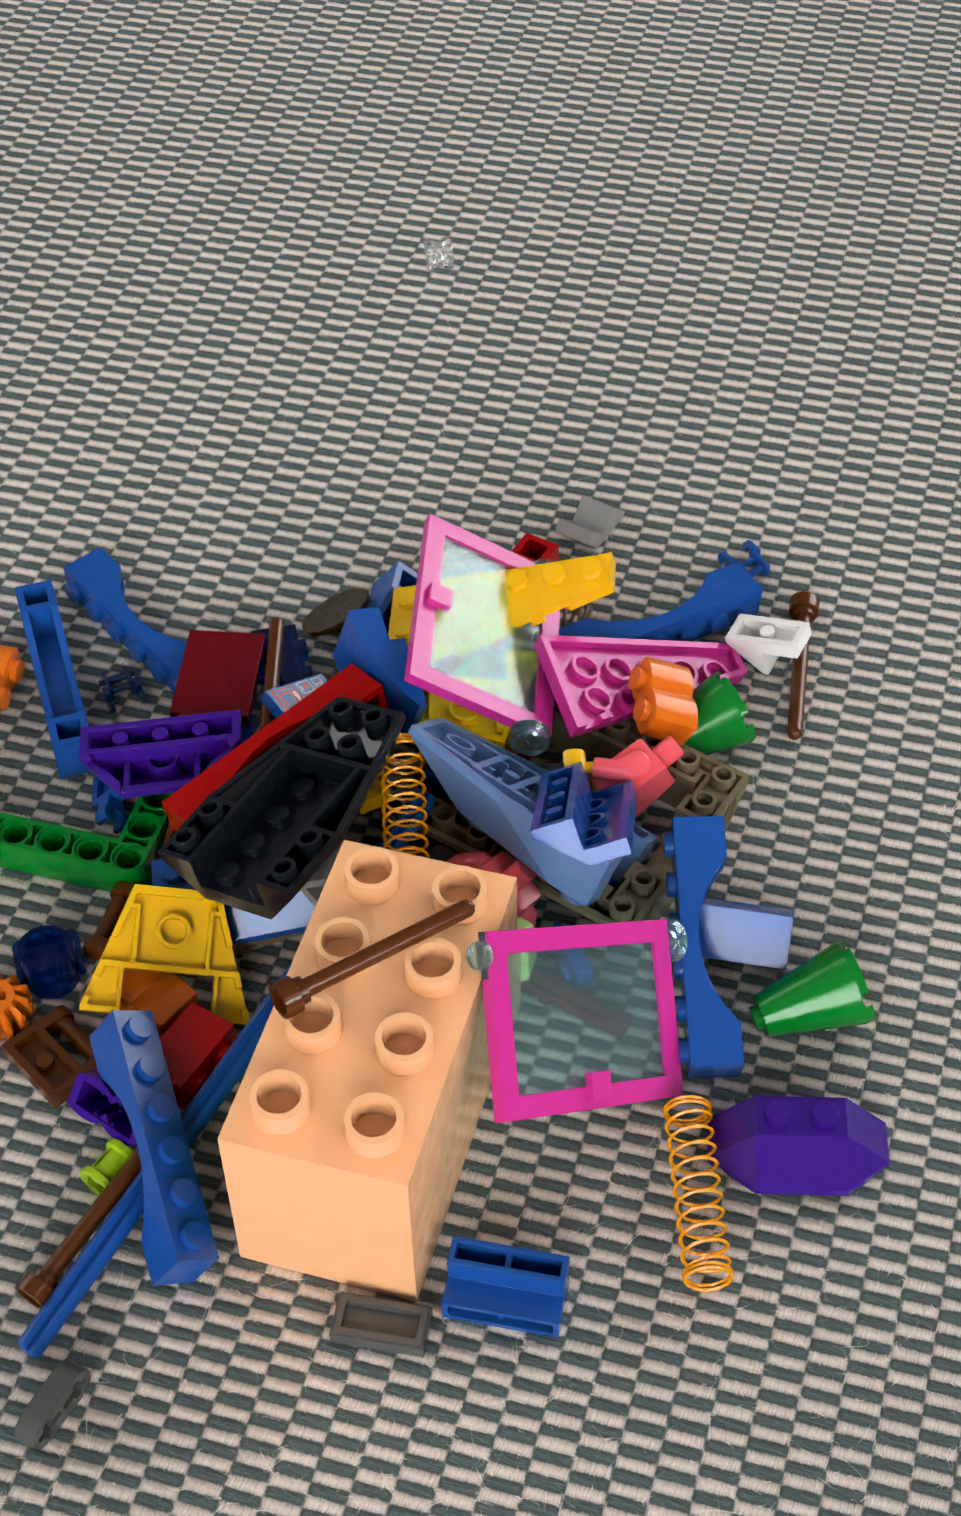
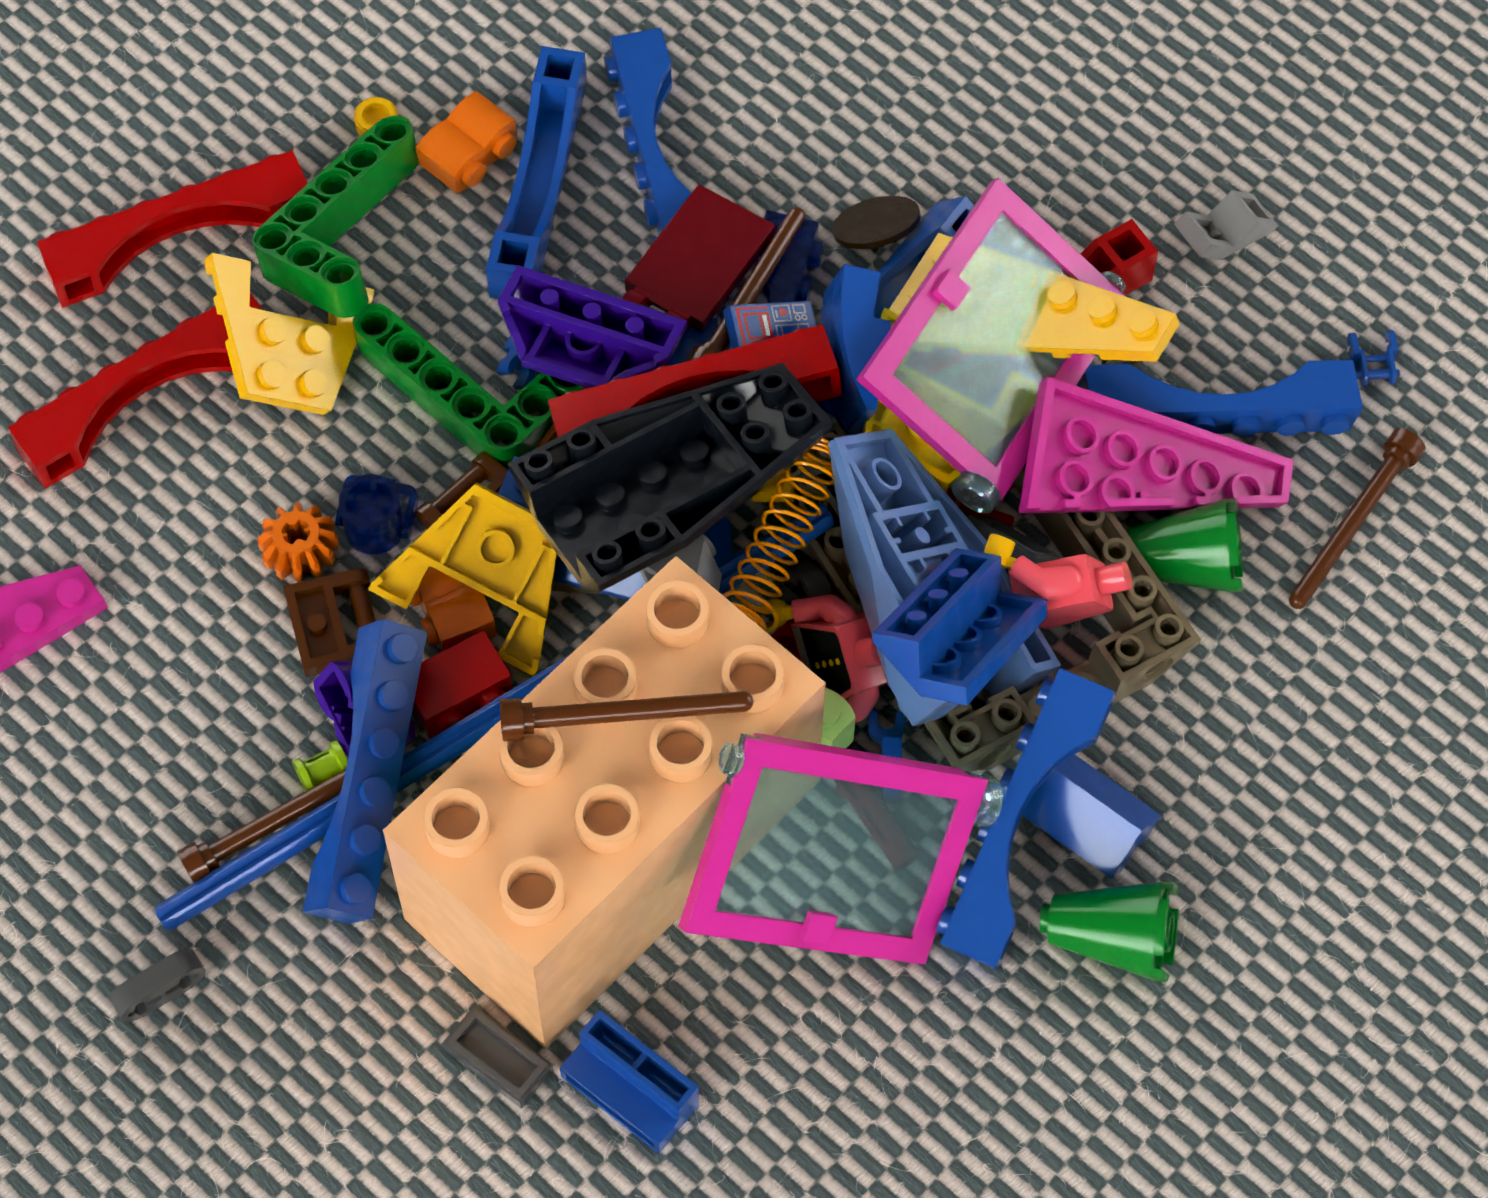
camera: 25 degrees right, 15 degrees up
(132, 683) = (589, 212): dark blue piece -> none
(663, 700) = (1148, 511): orange brick -> none
(704, 1266) = (835, 1158): light orange piece -> none
(766, 638) = (1329, 474): white slope -> none
(799, 1145) = (1005, 1080): dark purple wedge -> none

